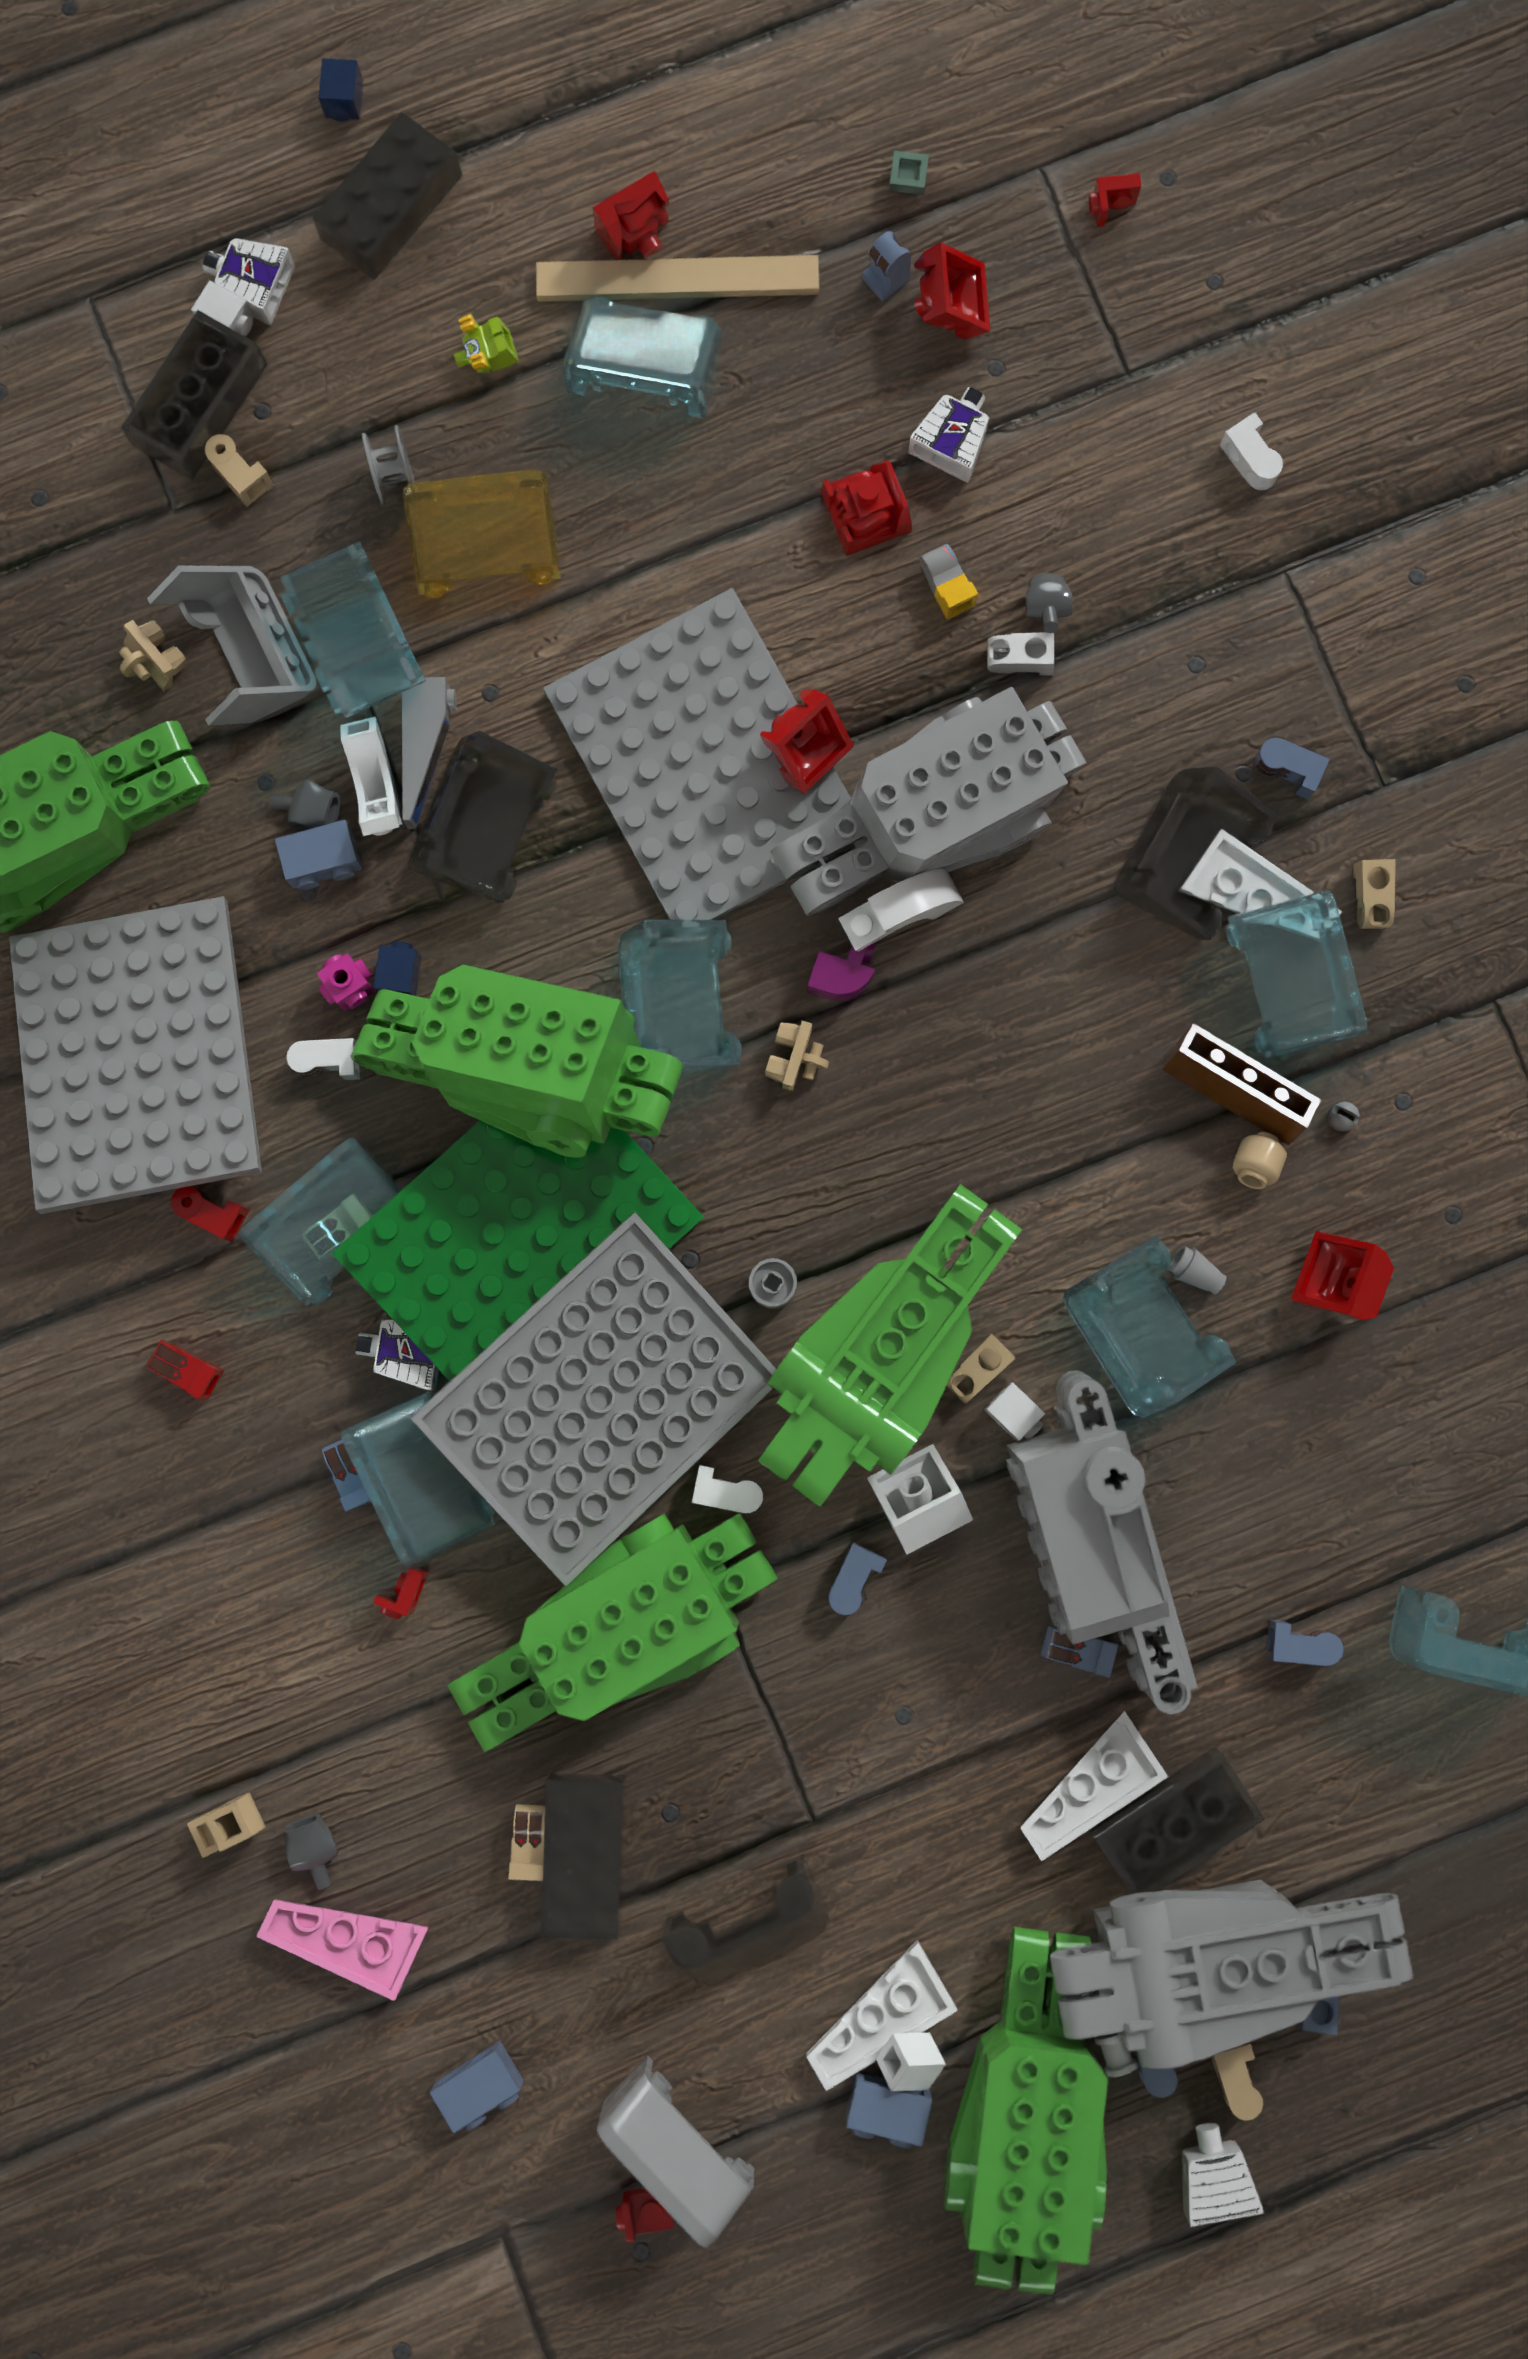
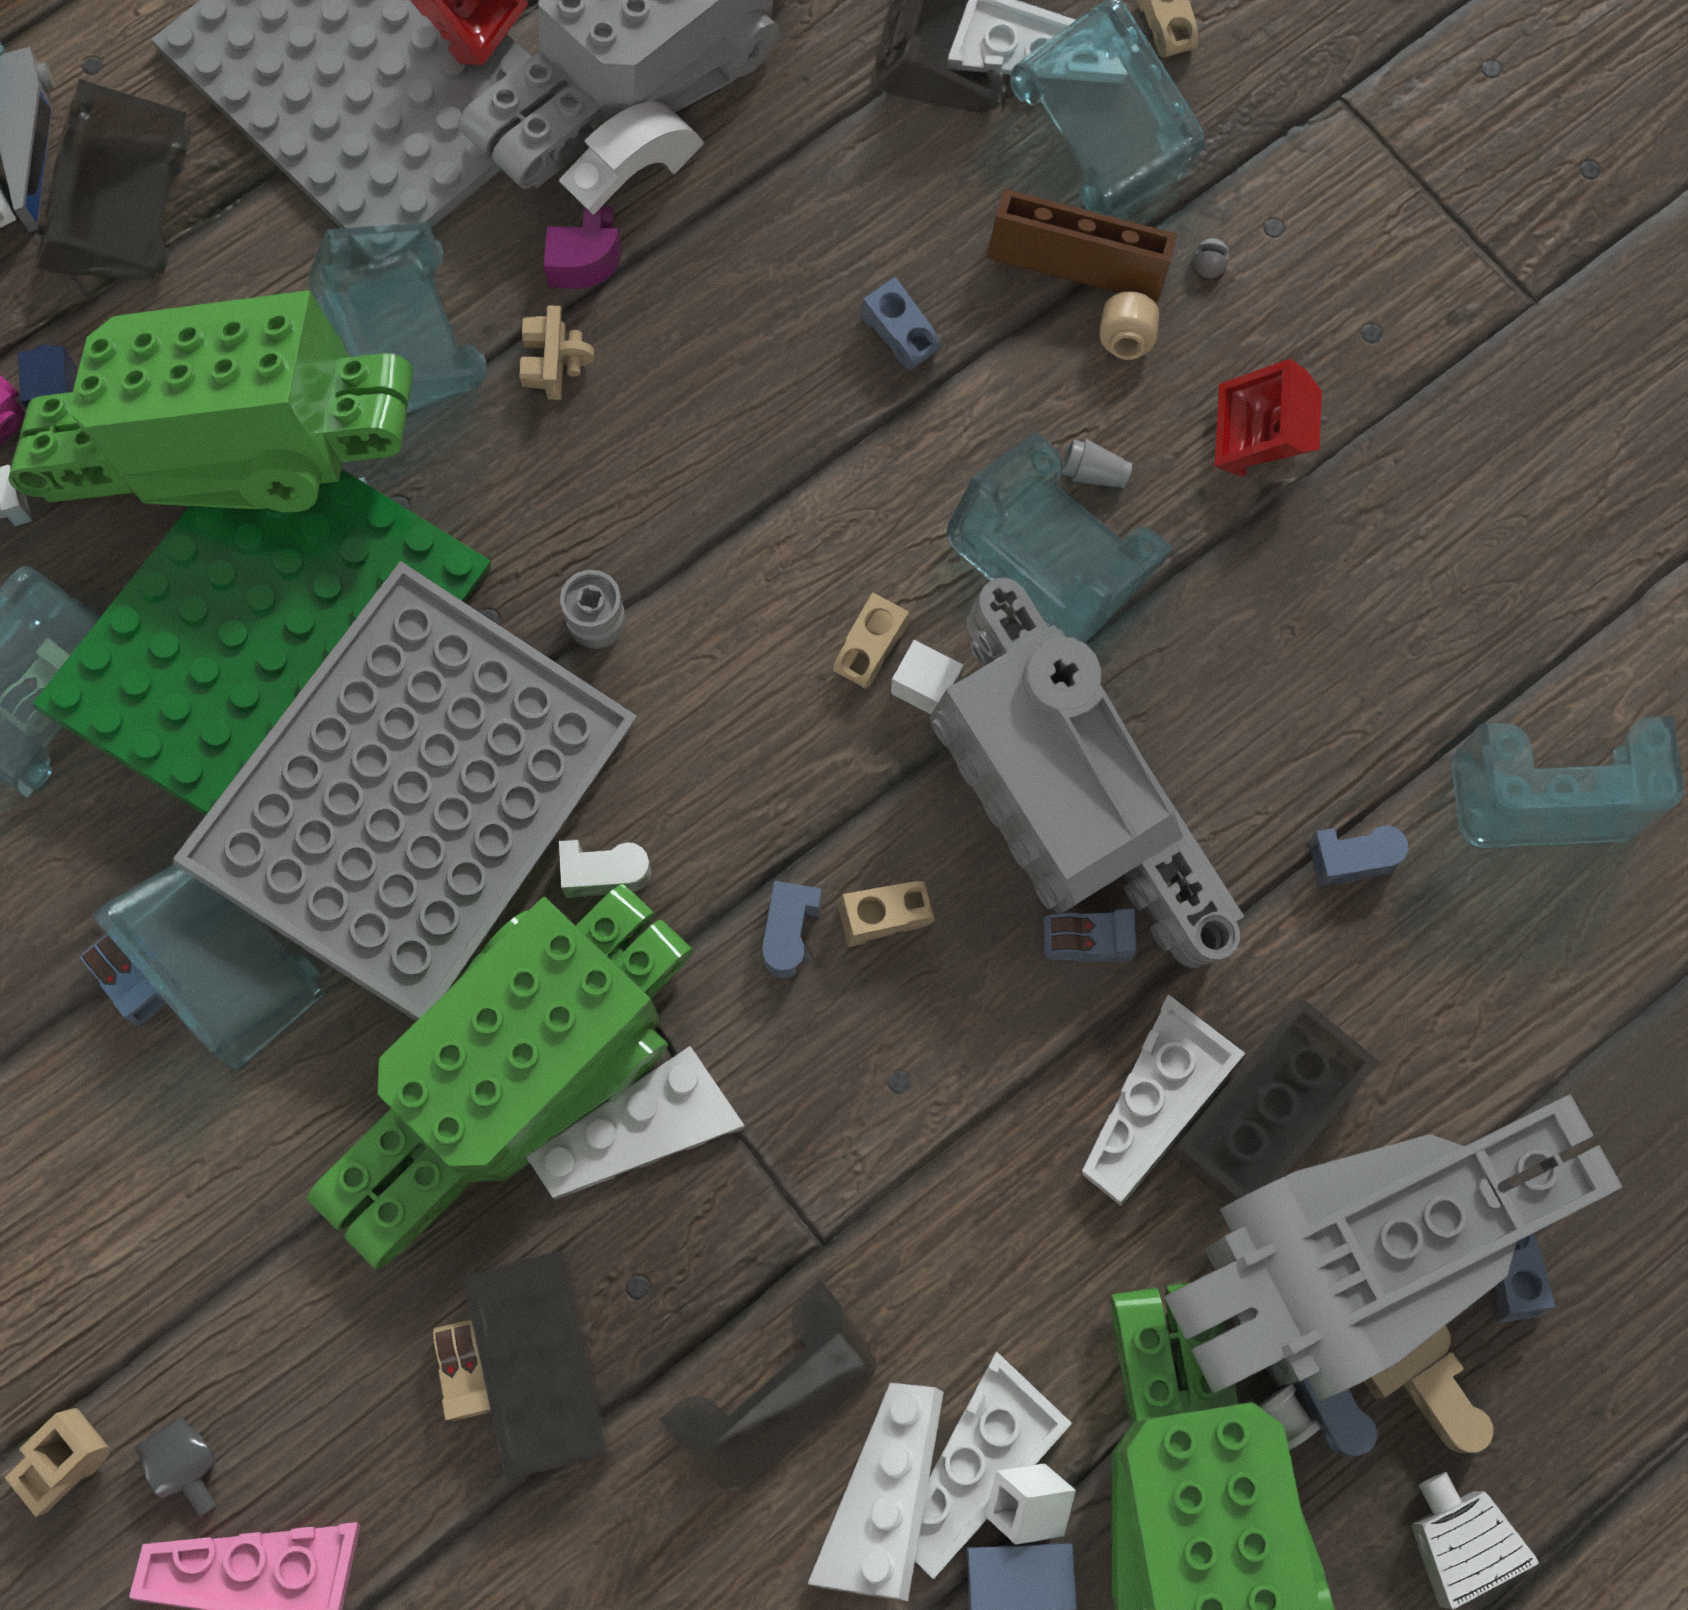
camera: 20 degrees left, 10 degrees down
(398, 1356) = (147, 817): torso -> none
(409, 1589) = (232, 1100): red bracket -> none
(720, 1694) = (654, 1118): none -> white wing
(803, 2030) = (882, 1509): none -> white wing
(884, 1353) = (742, 633): bright green piece -> none
(920, 1499) = (844, 812): white slope -> none
(929, 1587) = (884, 911): none -> tan leg
(1077, 1109) = (900, 324): none -> sand blue leg

